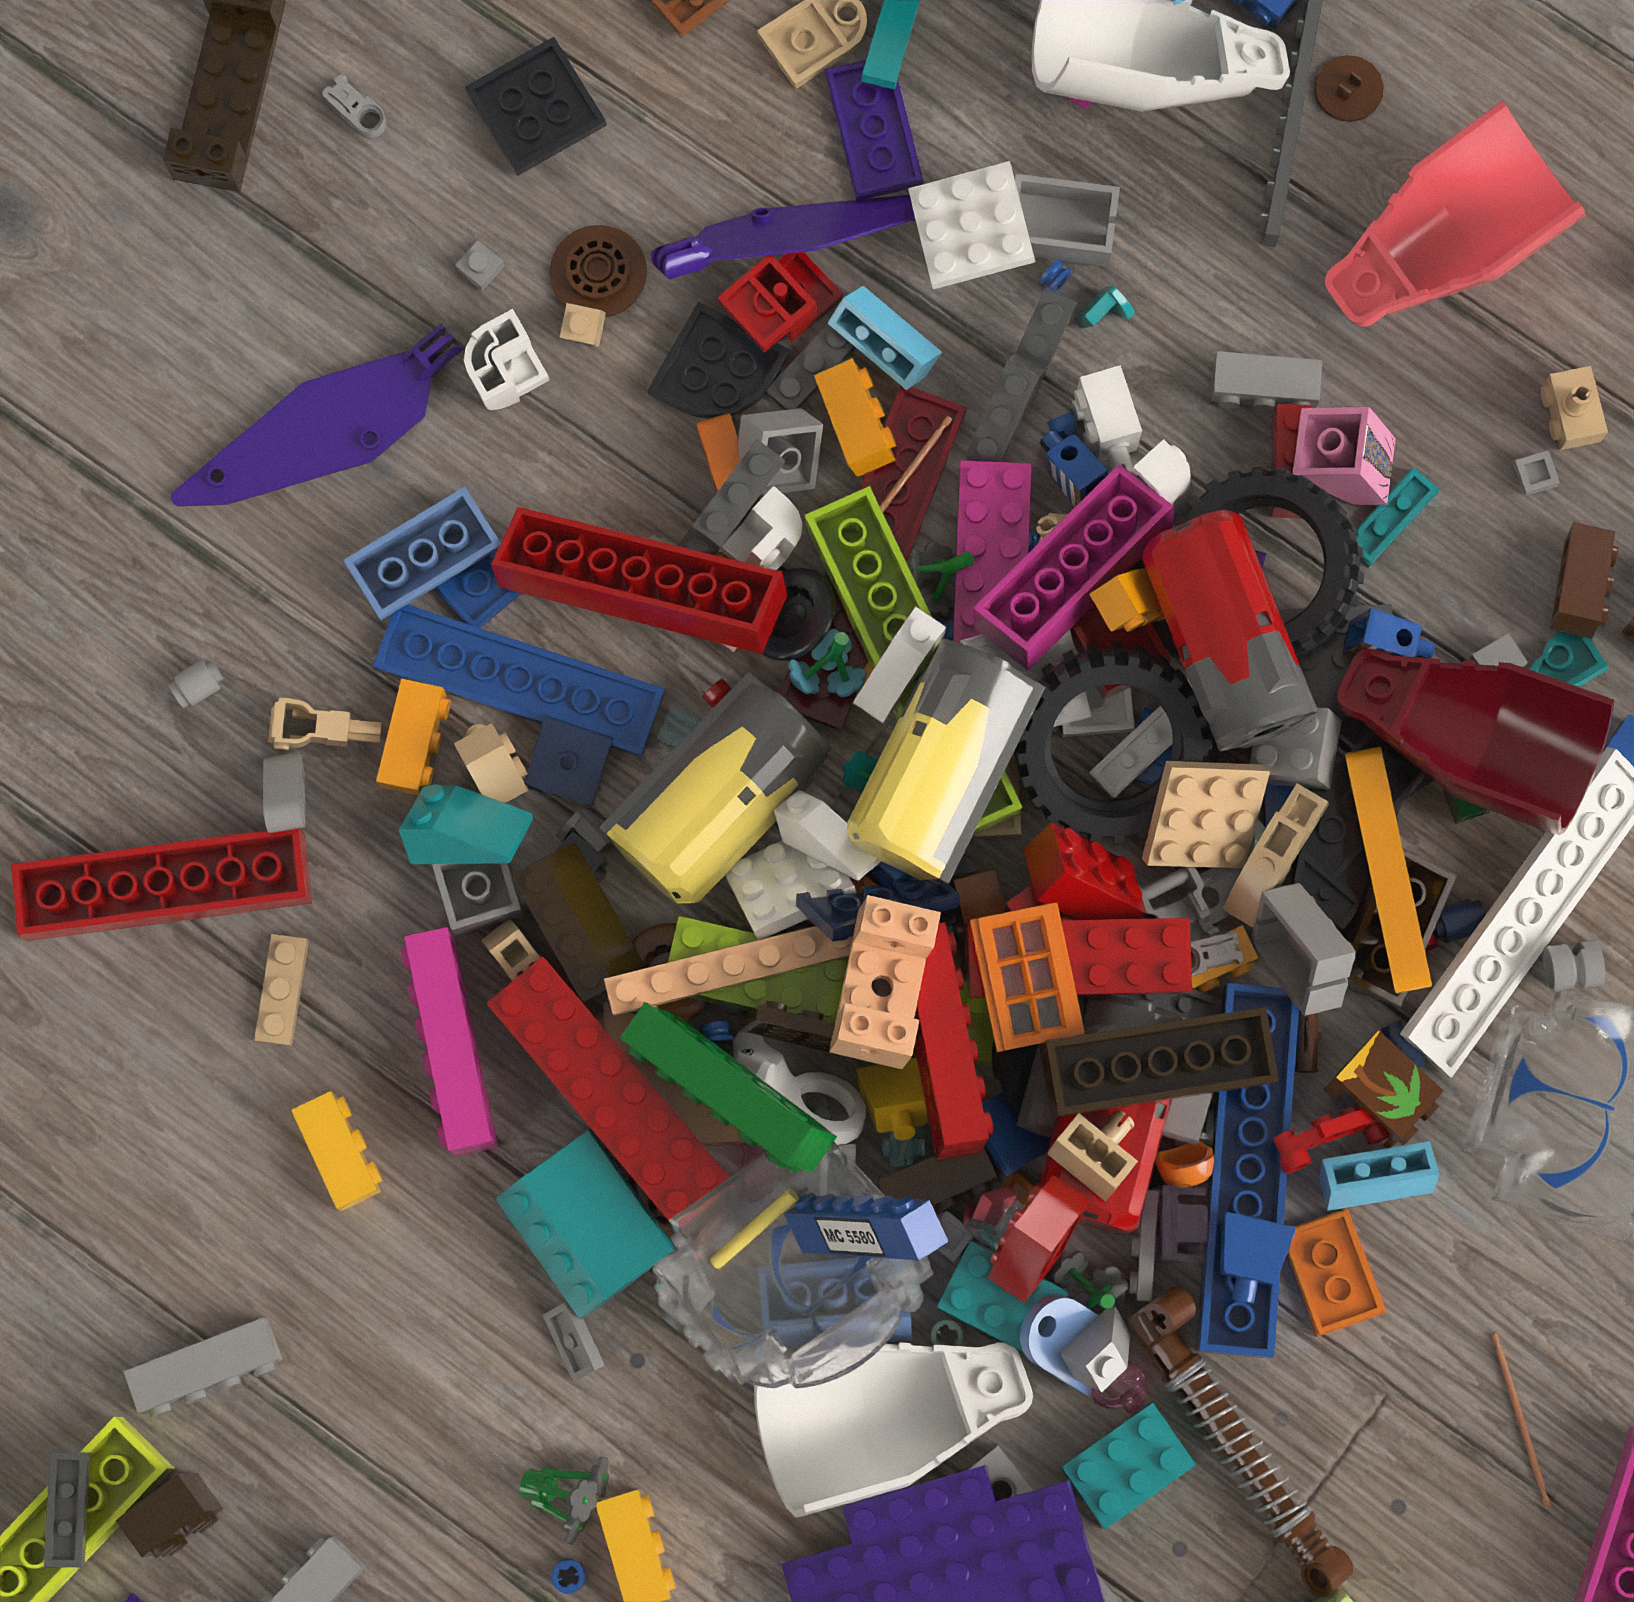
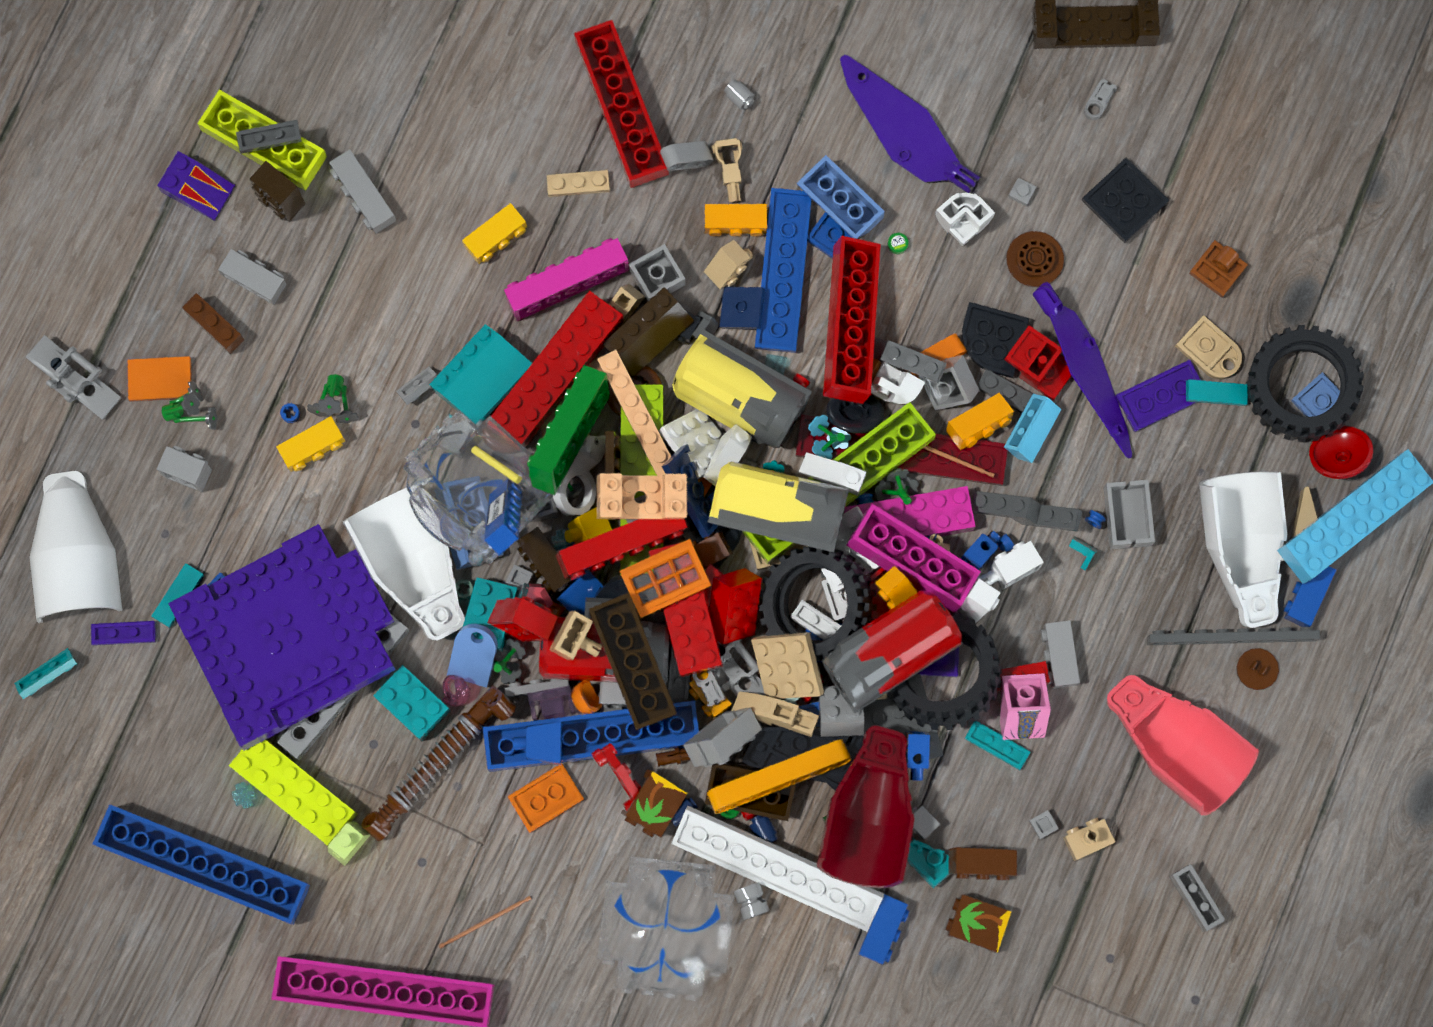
camera: 75 degrees right, 0 degrees up
(462, 827) = (687, 256): teal slope -> none
(518, 484) = (897, 243): none -> tile
(582, 324) = (998, 256): tan brick -> none
(717, 1031) = (605, 424): blue bush -> none
(971, 225) = (1110, 461): white plate -> none
(1099, 1351) = (472, 673): light grey slope -> none
(1378, 1175) = (604, 810): medium azure brick -> none

